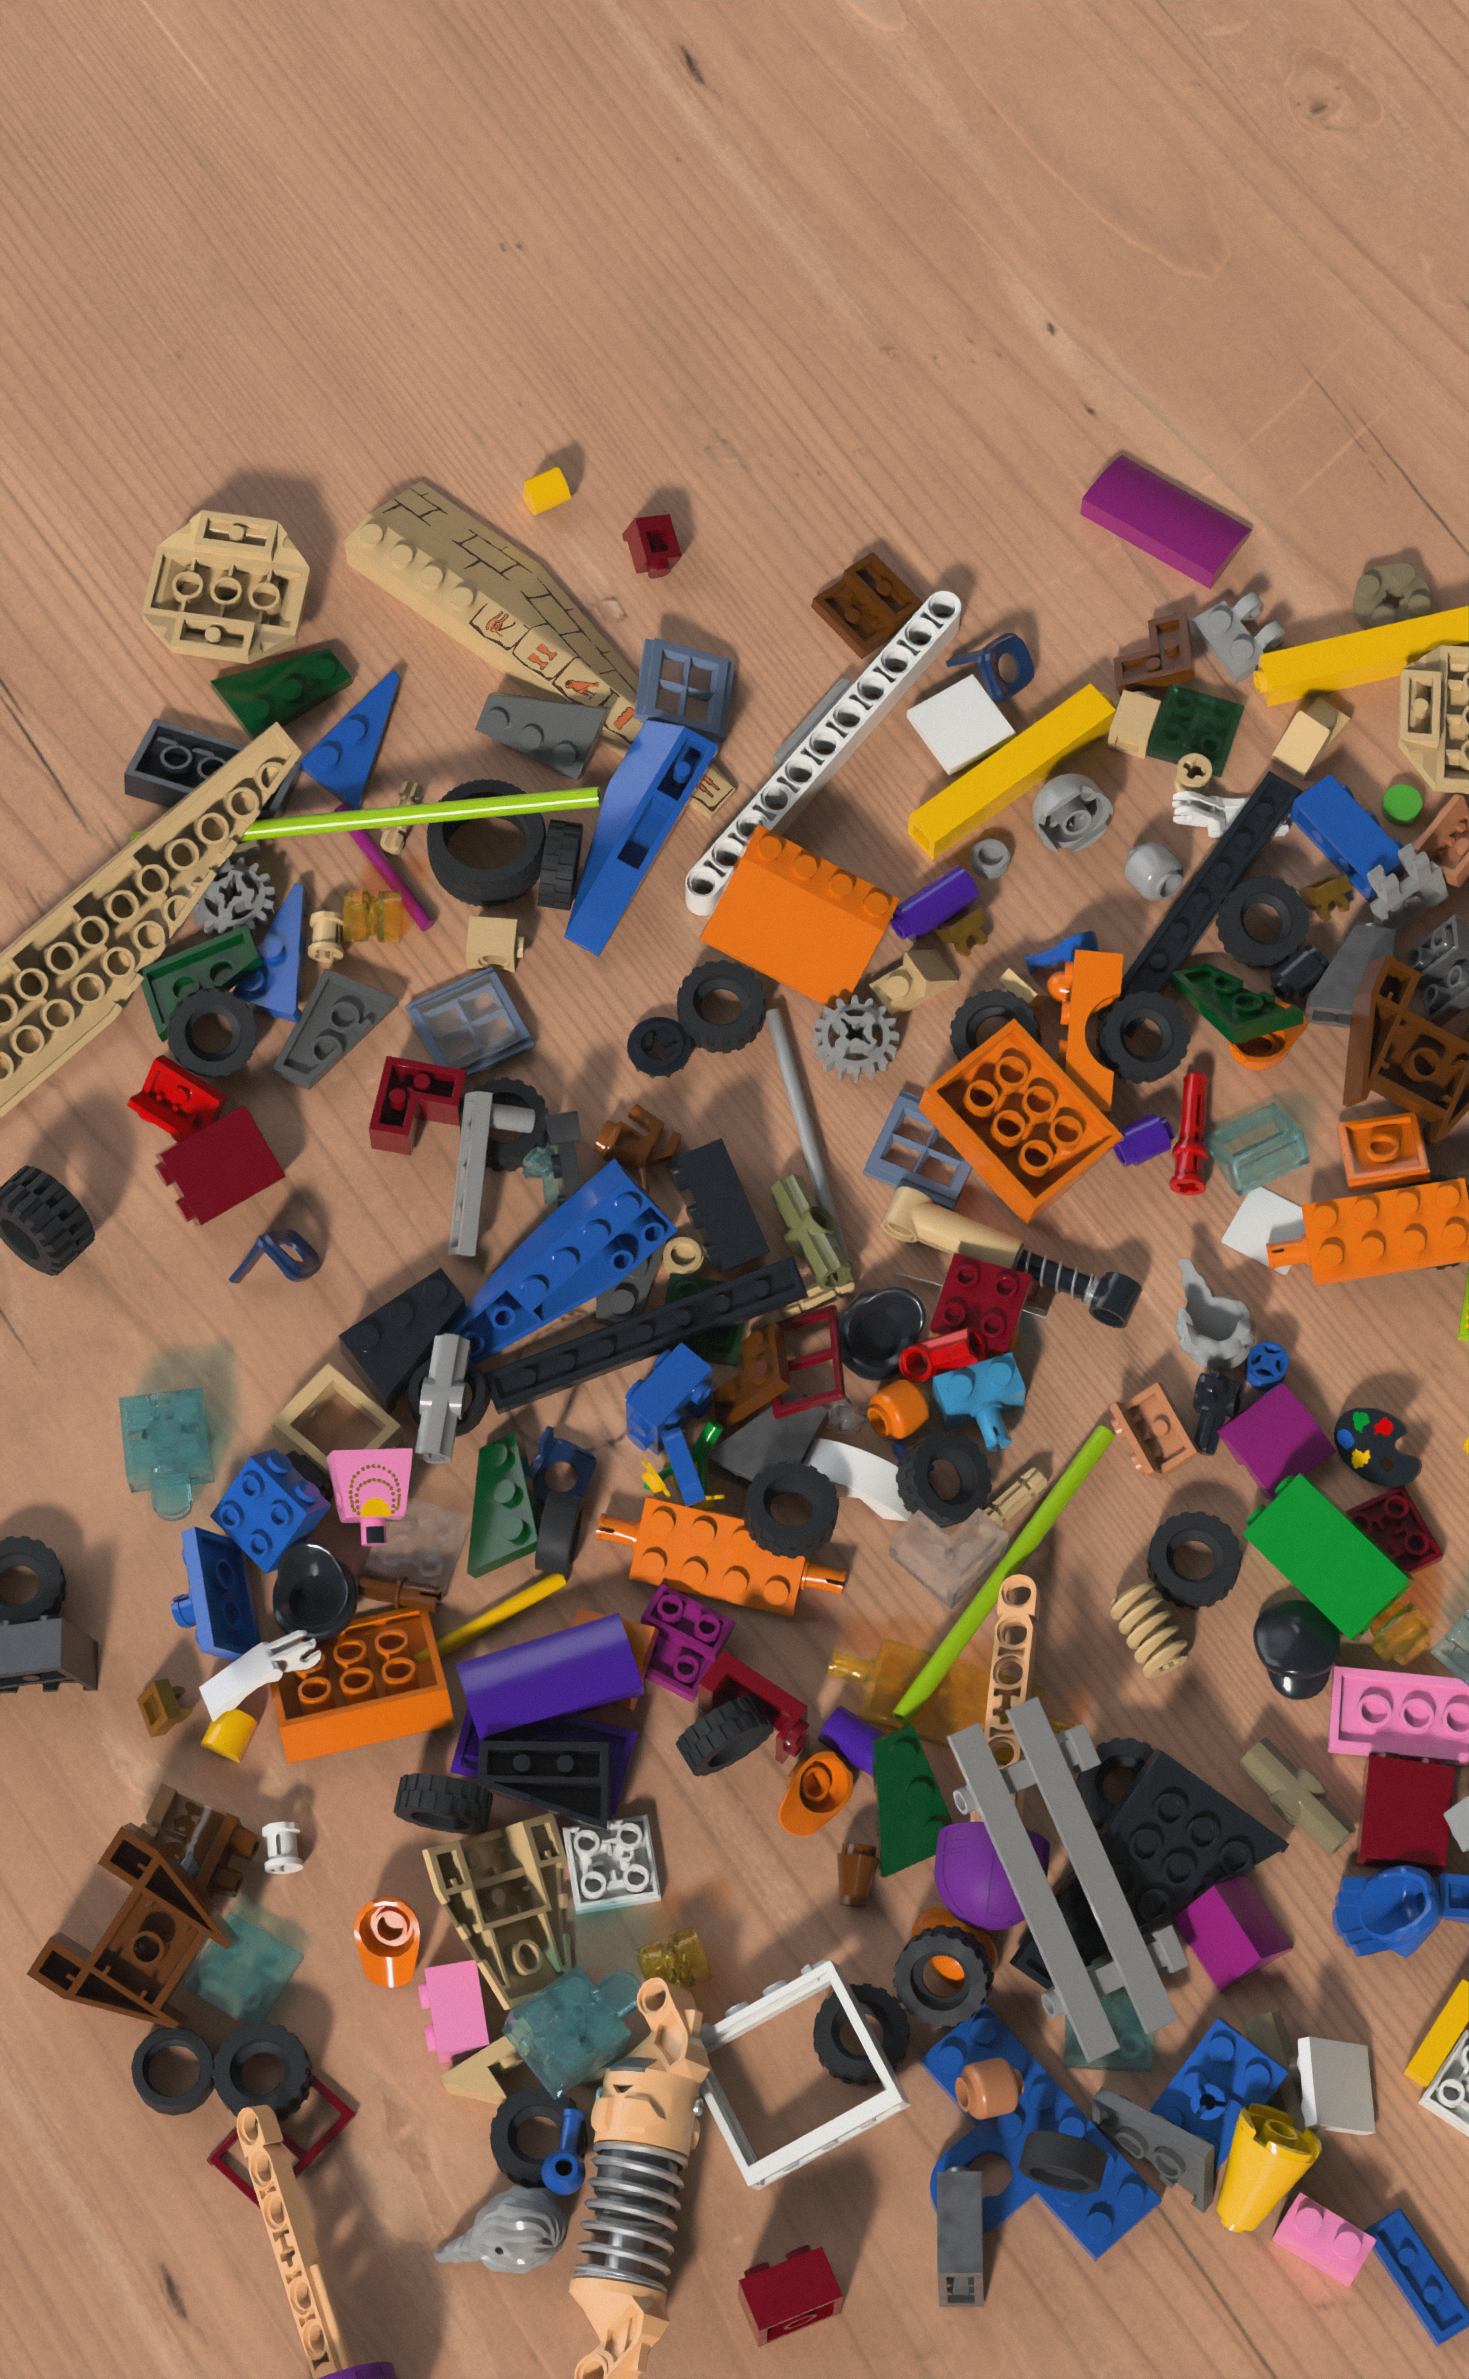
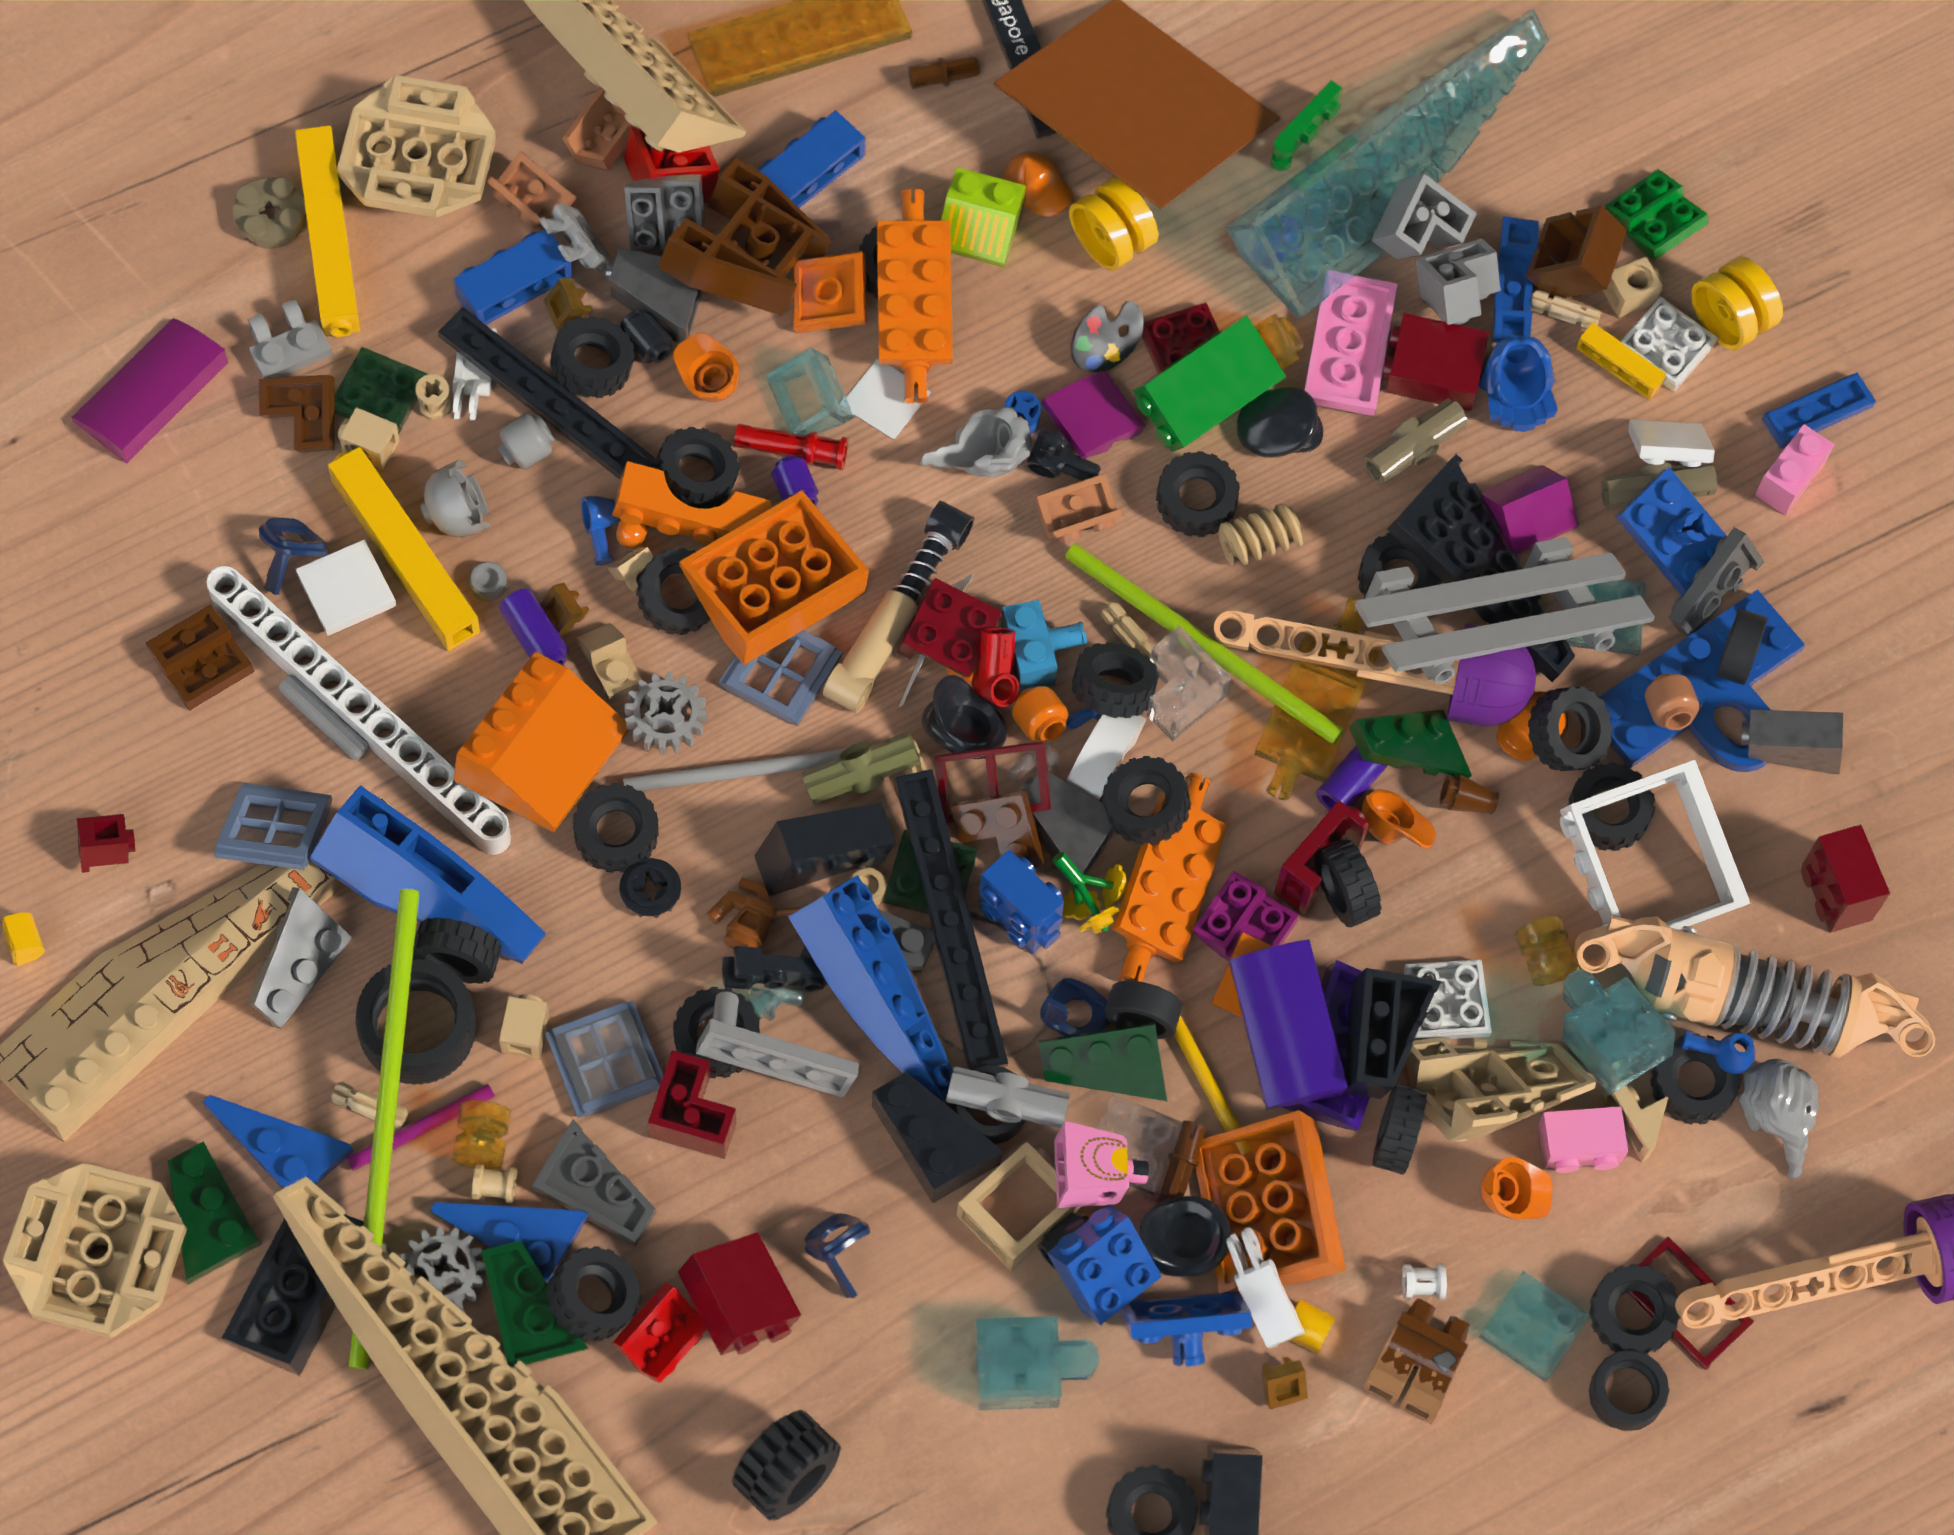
camera: 90 degrees left, 0 degrees up
(147, 1941) = (1527, 1398): reddish brown wedge -> none
(683, 1466) = (1098, 887): blue beam -> none
(1230, 1007) = (682, 387): dark green wing -> none
(1262, 2165) = (1741, 498): yellow cone -> none
(1310, 737) = (403, 297): tan slope -> none
(1401, 805) = (482, 234): bright green tile -> none

